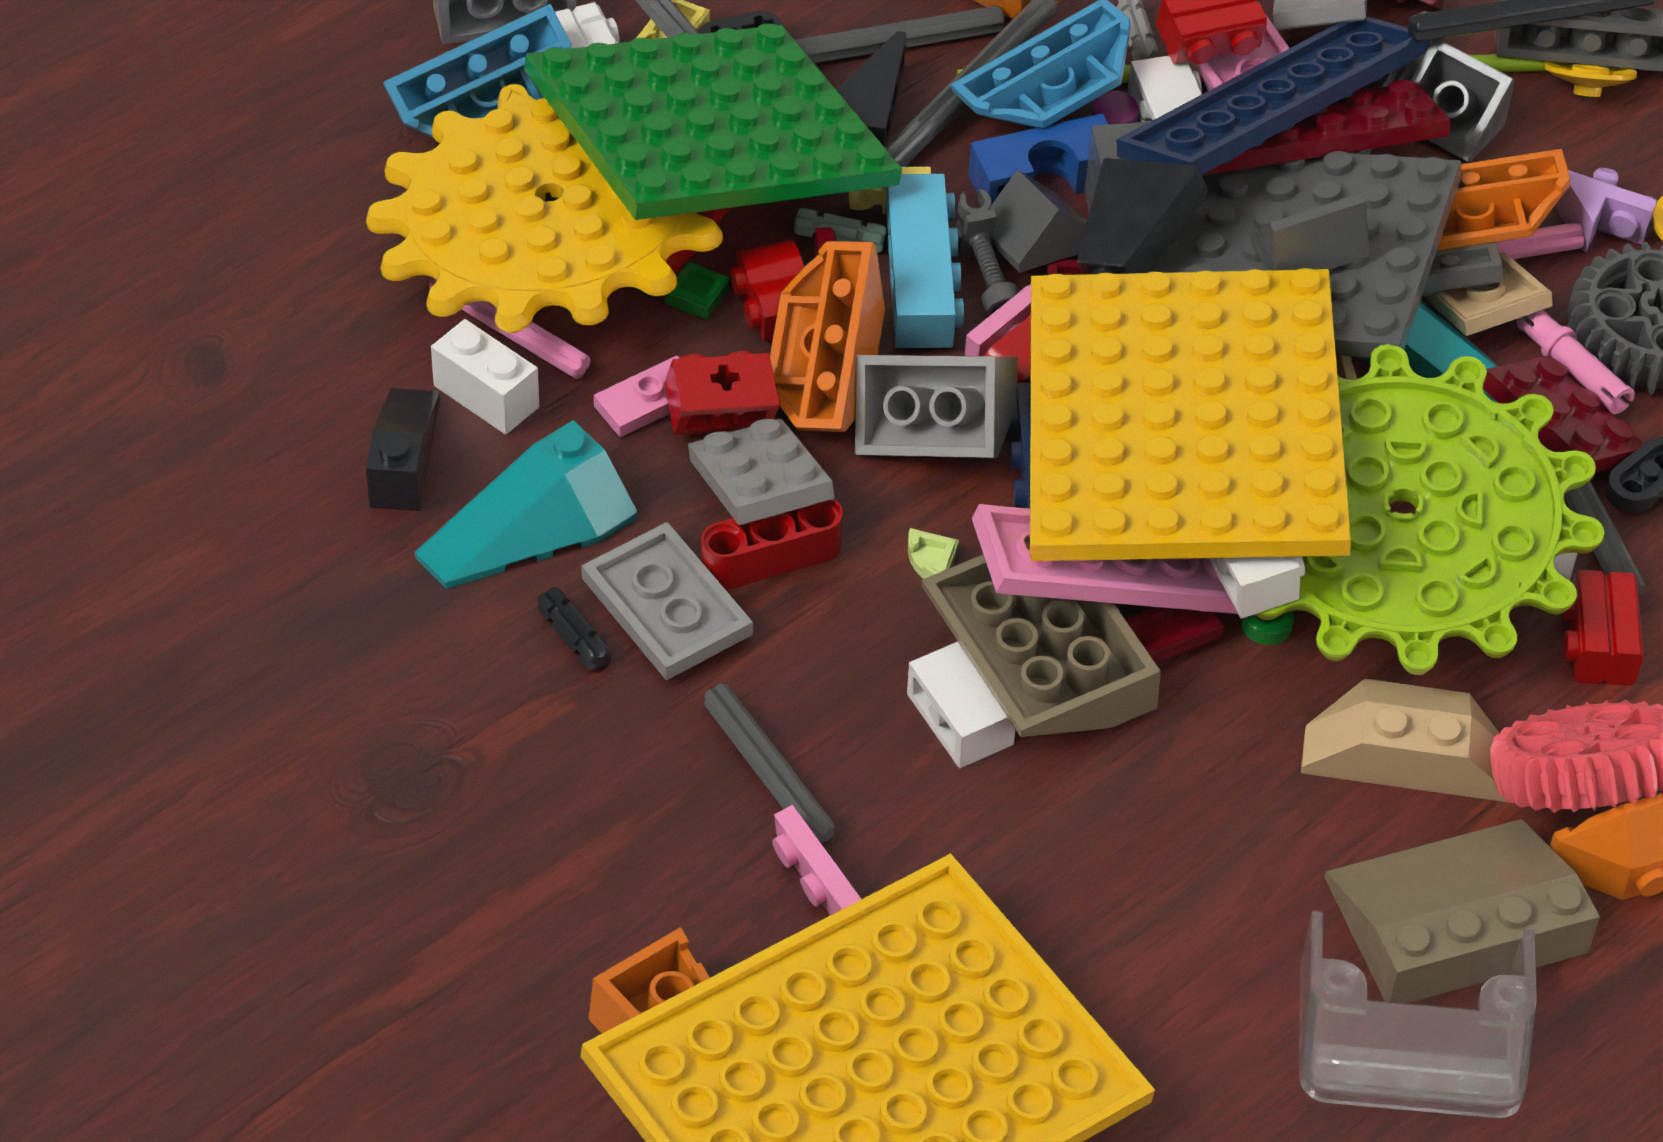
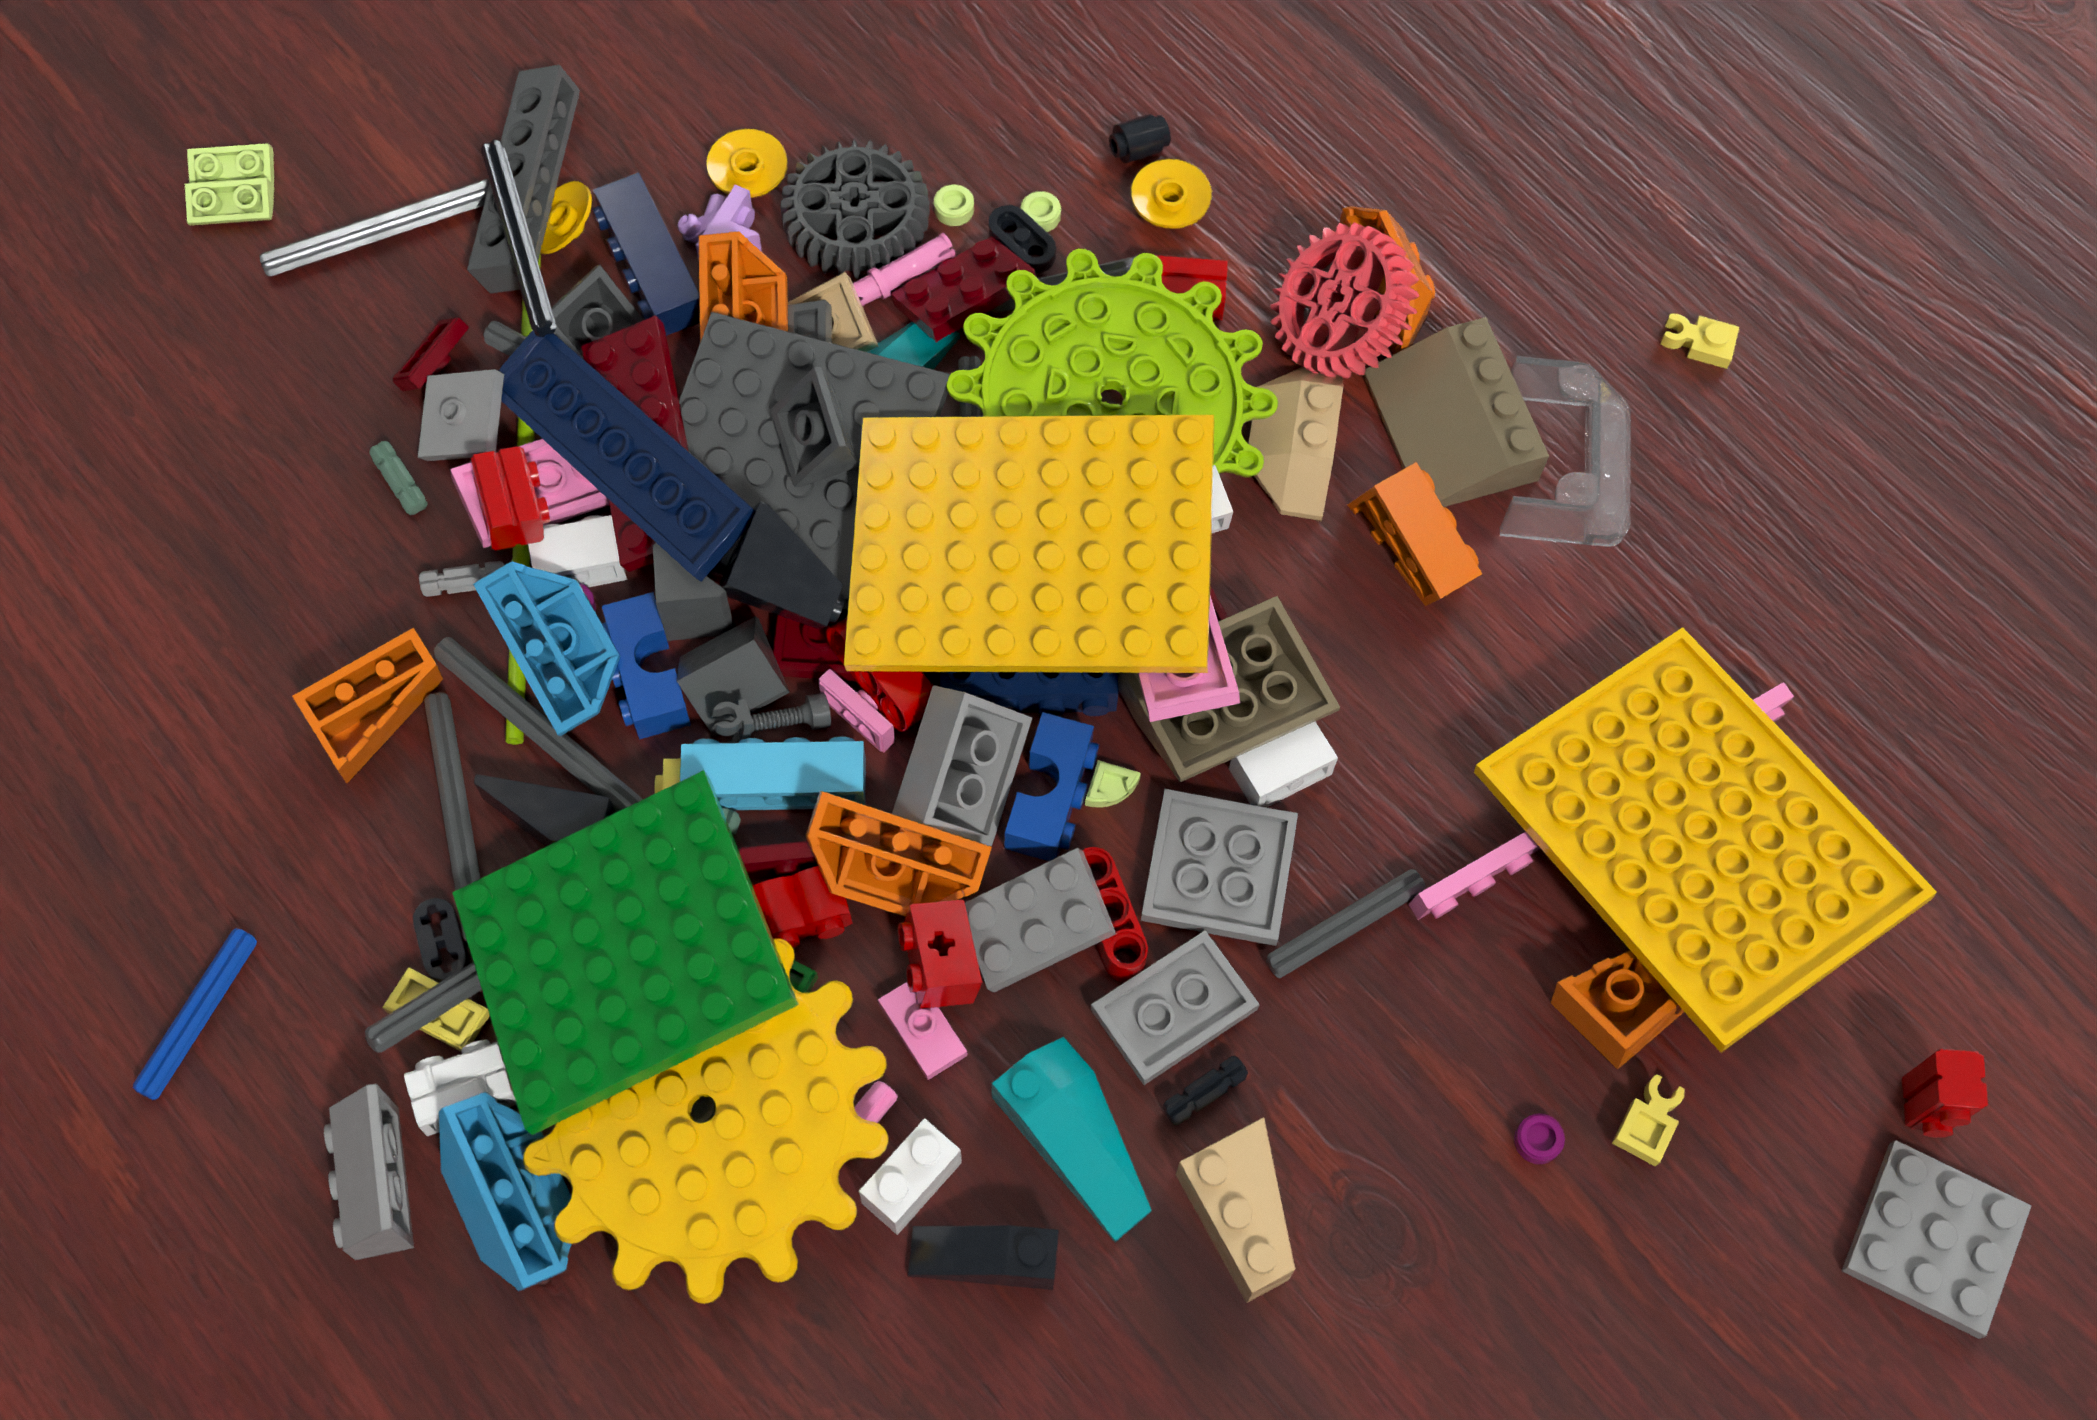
camera: 90 degrees left, 15 degrees up
(436, 643) = (1241, 1208): none -> tan wedge
(509, 937) = (1539, 1139): none -> magenta tile
(519, 1036) = (1647, 1126): none -> light yellow plate
(832, 645) = (1220, 867): none -> light grey plate
(881, 492) = (1041, 823): none -> blue arch
(1276, 840) = (1419, 533): none -> orange wedge
(1586, 126) = (647, 253): none -> dark blue brick

